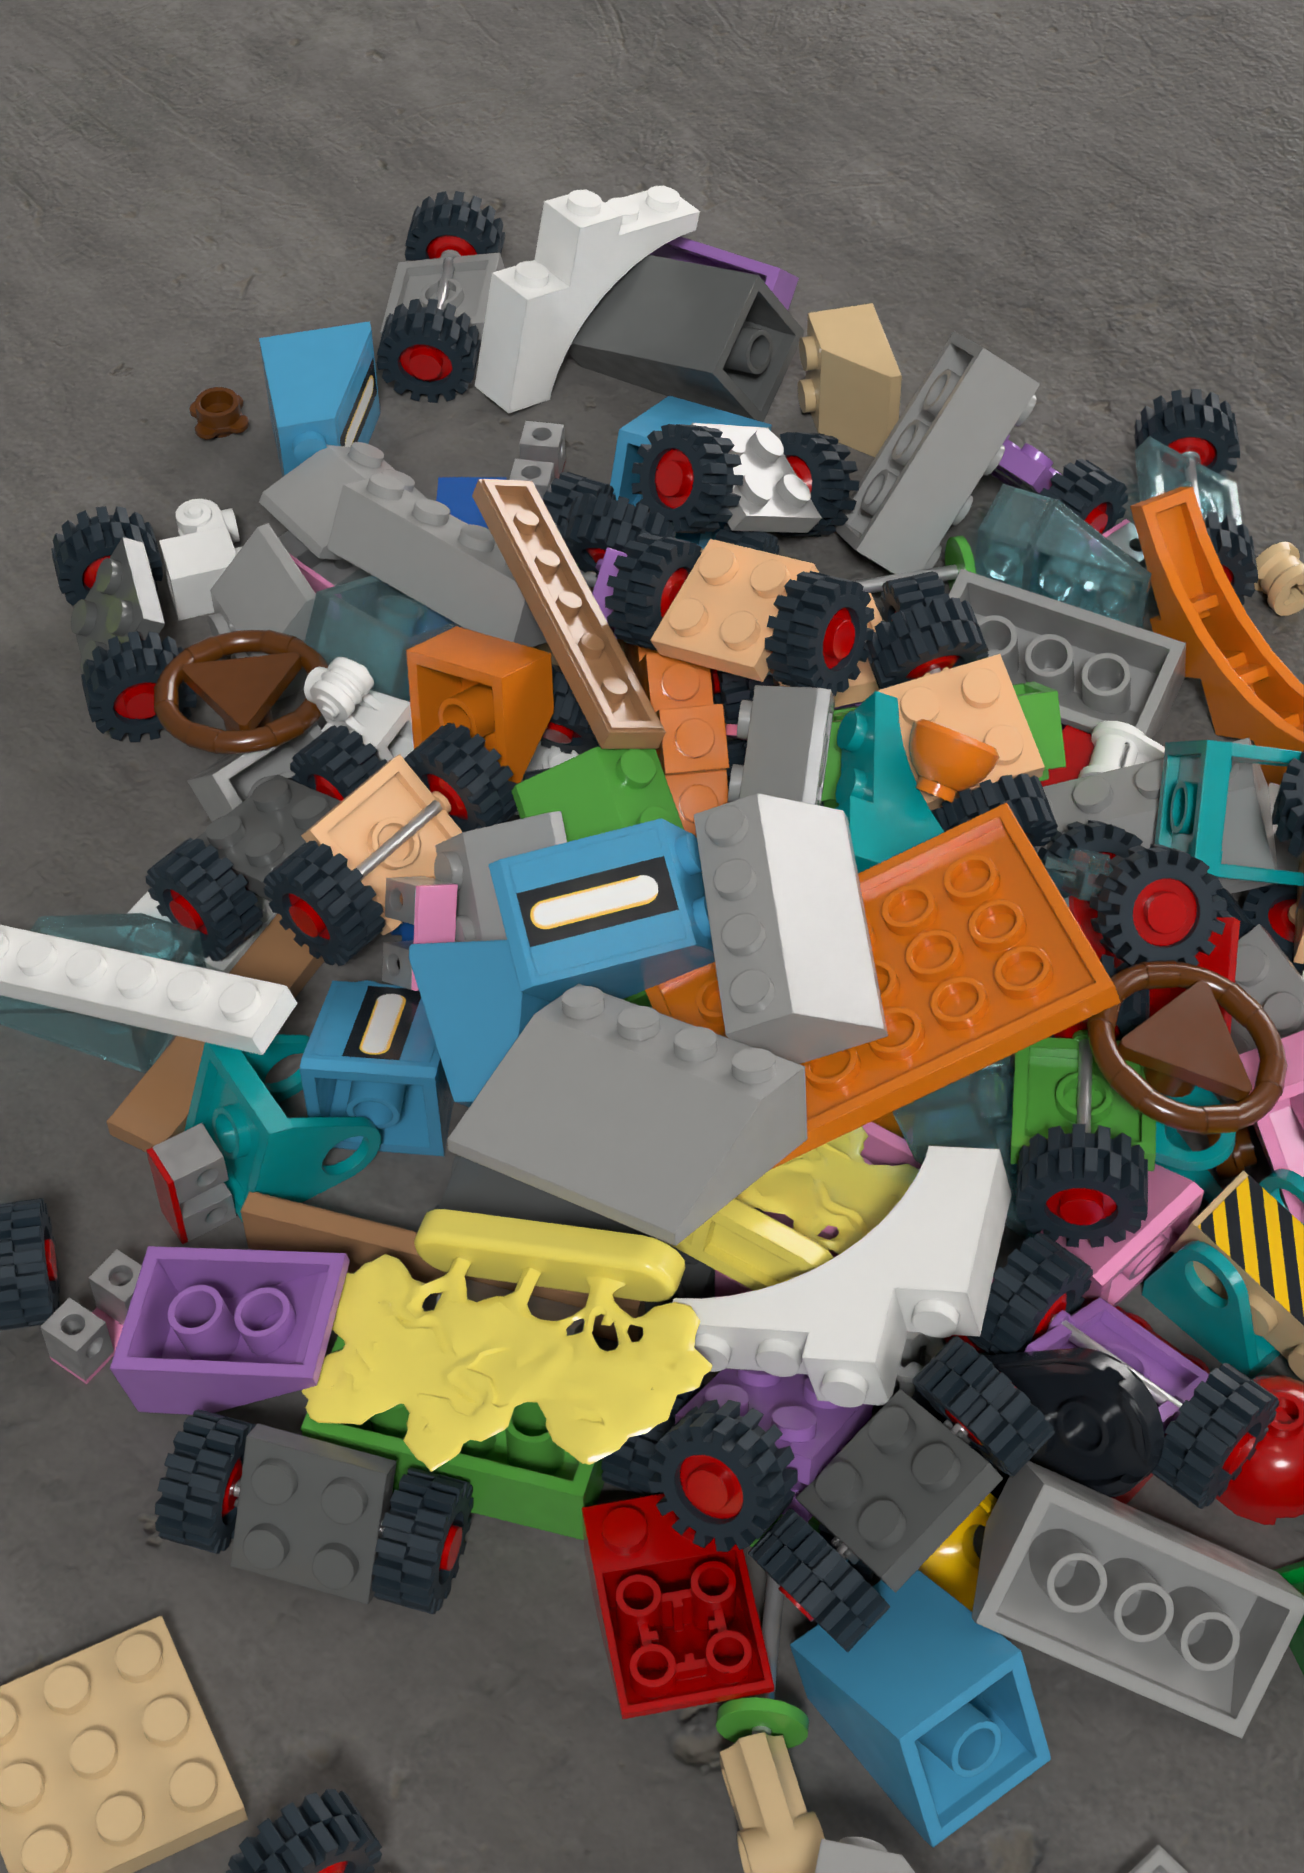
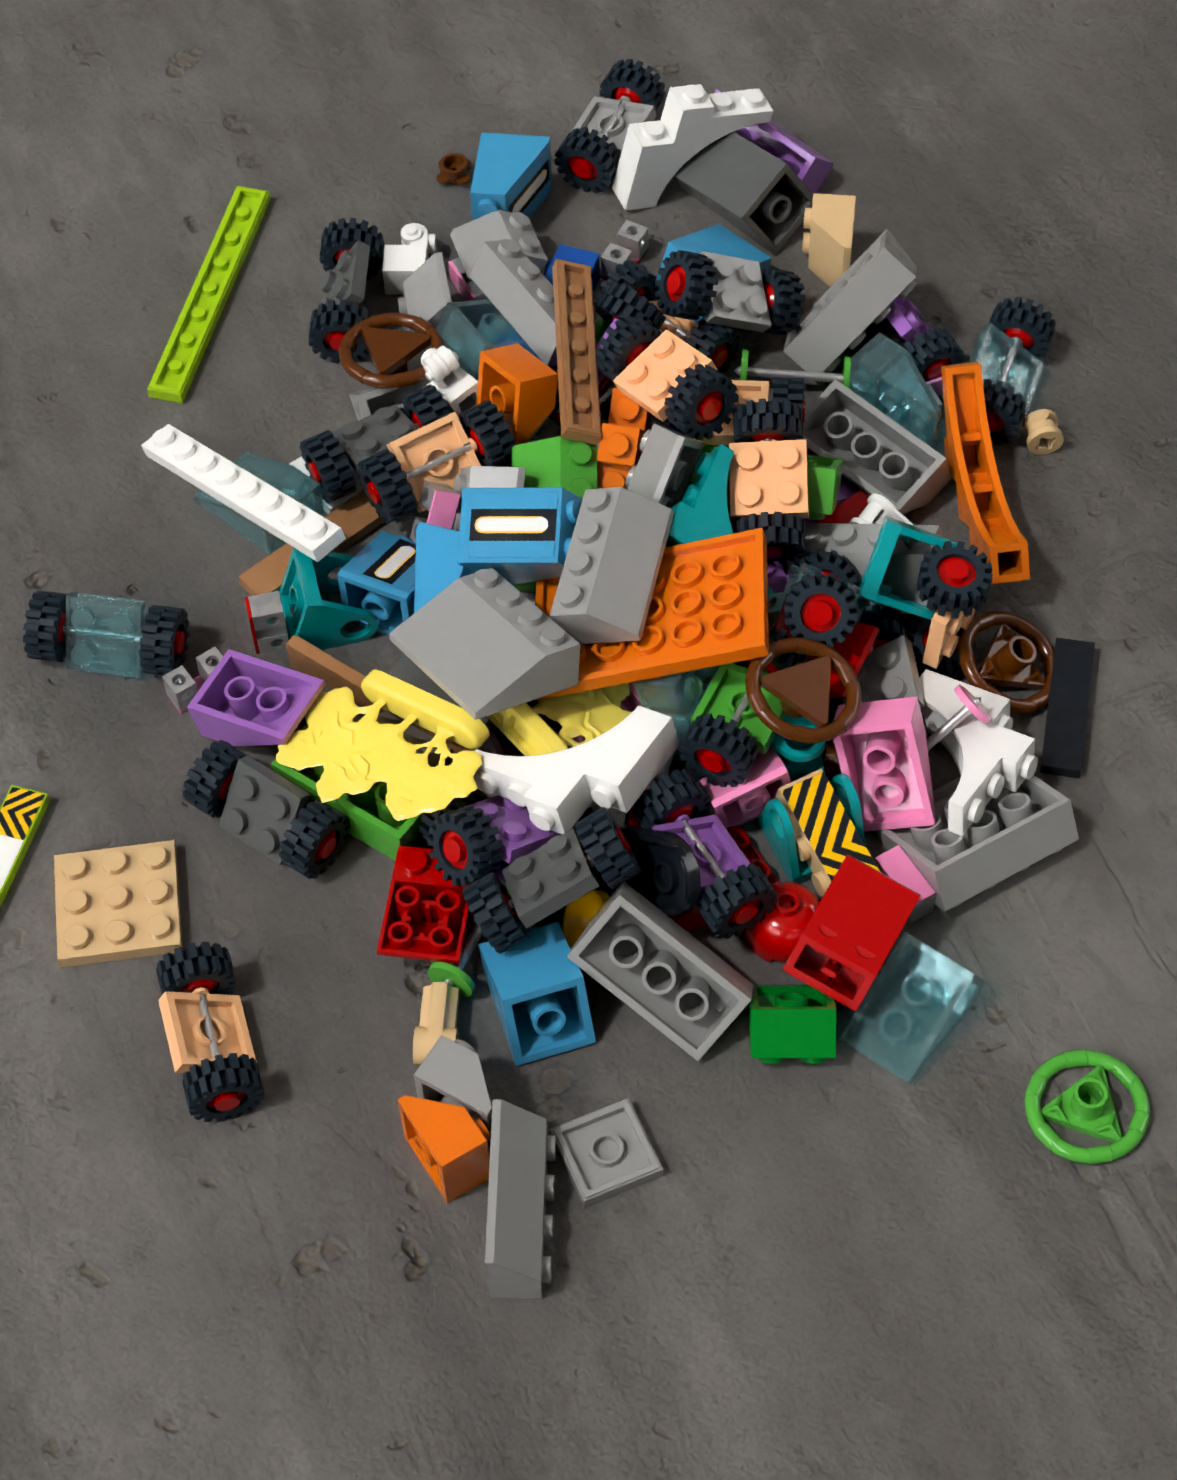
camera: 20 degrees right, 5 degrees up
(948, 759) = (746, 493): orange brick -> none

